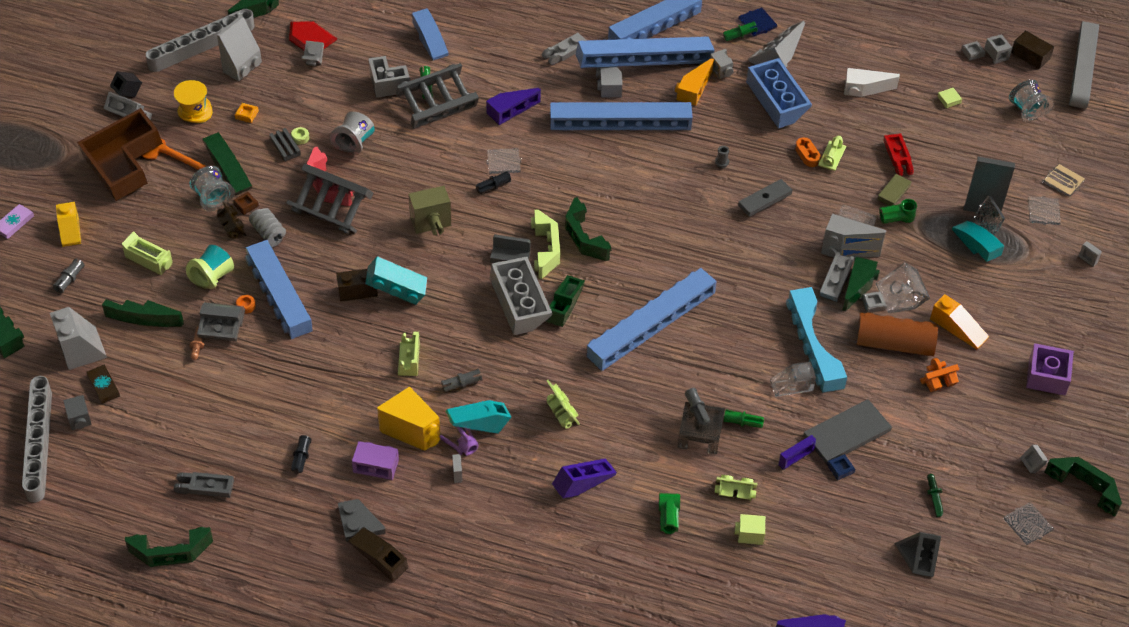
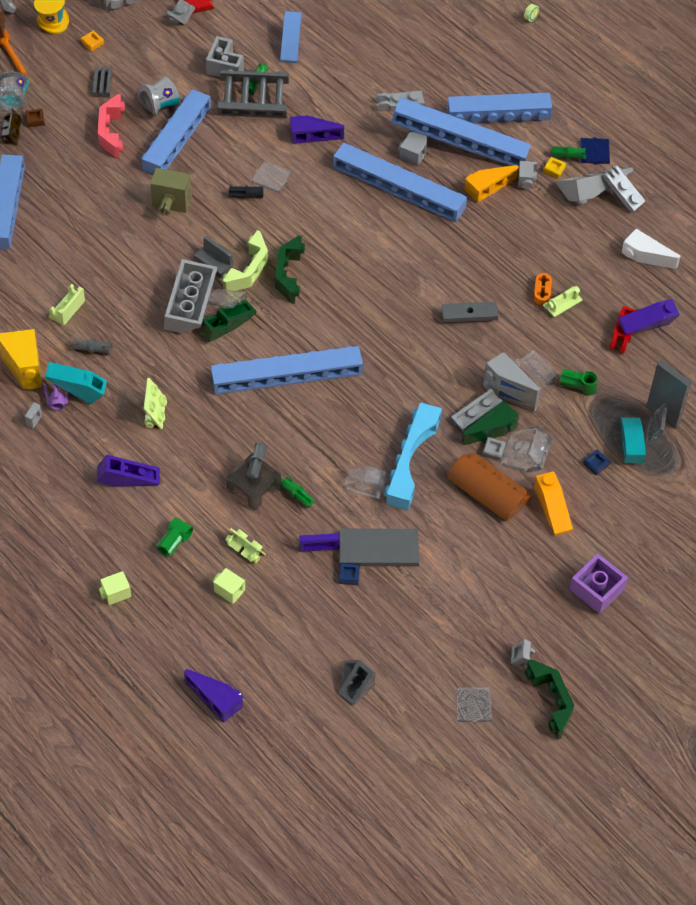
camera: 30 degrees right, 5 degrees up
(227, 163) = (42, 77): dark green slope -> none
(267, 226) = (34, 145): light grey piece -> none
(300, 135) = (120, 79): yellowish green tile -> none
(328, 180) = (113, 139): dark grey fence -> none
(352, 285) = (68, 226): dark brown brick -> none
(390, 160) = (176, 132): none -> medium blue brick
(396, 280) = (96, 237): brick -> none
(553, 281) = (225, 298): none -> clear piece
(654, 584) = (115, 588): none -> yellowish green brick
(722, 158) = (459, 258): dark grey pin -> none
(736, 49) = (554, 167): none -> yellow tile
(778, 92) = (554, 222): medium blue slope -> none
(810, 40) = (623, 188): none -> hinge
(894, 190) = (594, 359): olive tile -> none
(915, 134) = (649, 317): none -> dark purple slope
(932, 378) = (488, 539): orange hips -> none
(934, 492) = (411, 636): dark green piece -> none
(963, 273) = (596, 462): none -> dark blue tile

